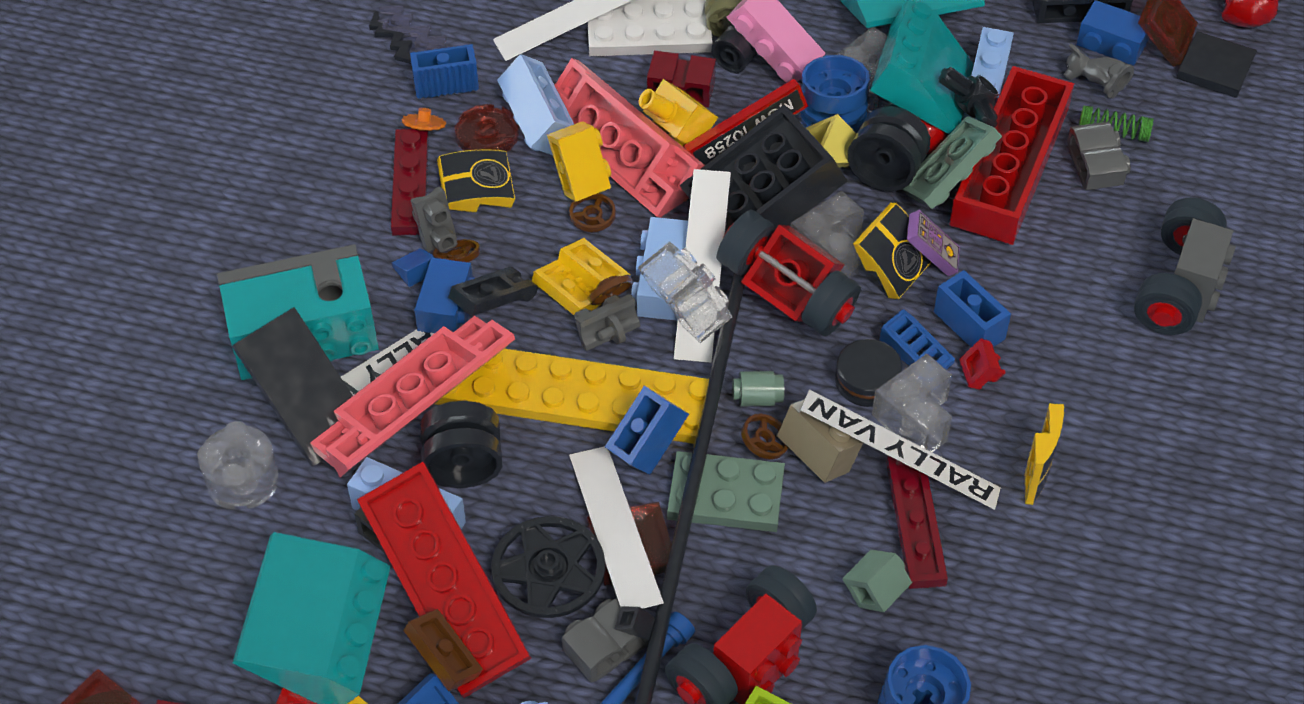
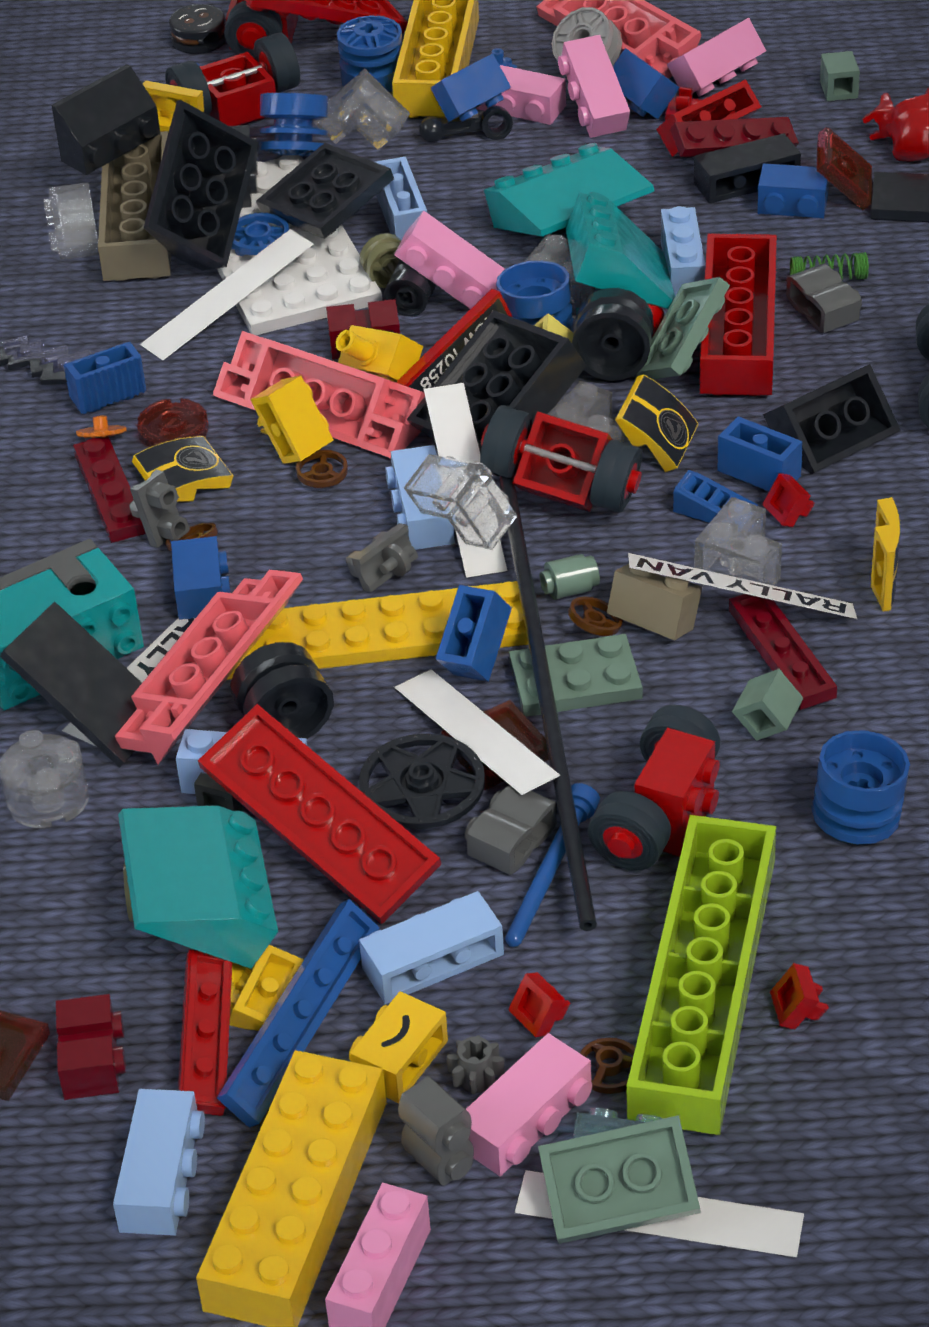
camera: 15 degrees left, 10 degrees down
(413, 266) = (151, 562): blue slope -> none
(443, 649) = (347, 873): reddish brown plate -> none
(492, 291) = (250, 556): black plate -> none
(534, 101) = (217, 382): light blue brick -> none
(576, 275) = (335, 528): yellow slope -> none
(610, 287) = (376, 523): reddish brown piece -> none
(635, 622) = (538, 797): black piece -> none
(865, 368) = (670, 532): black head -> none
(933, 243) = (693, 406): tile -> none
(972, 94) = (676, 262): black axle -> none
(1055, 290) = (836, 419): none -> black slope
(1104, 71) = (800, 224): dark grey animal -> none

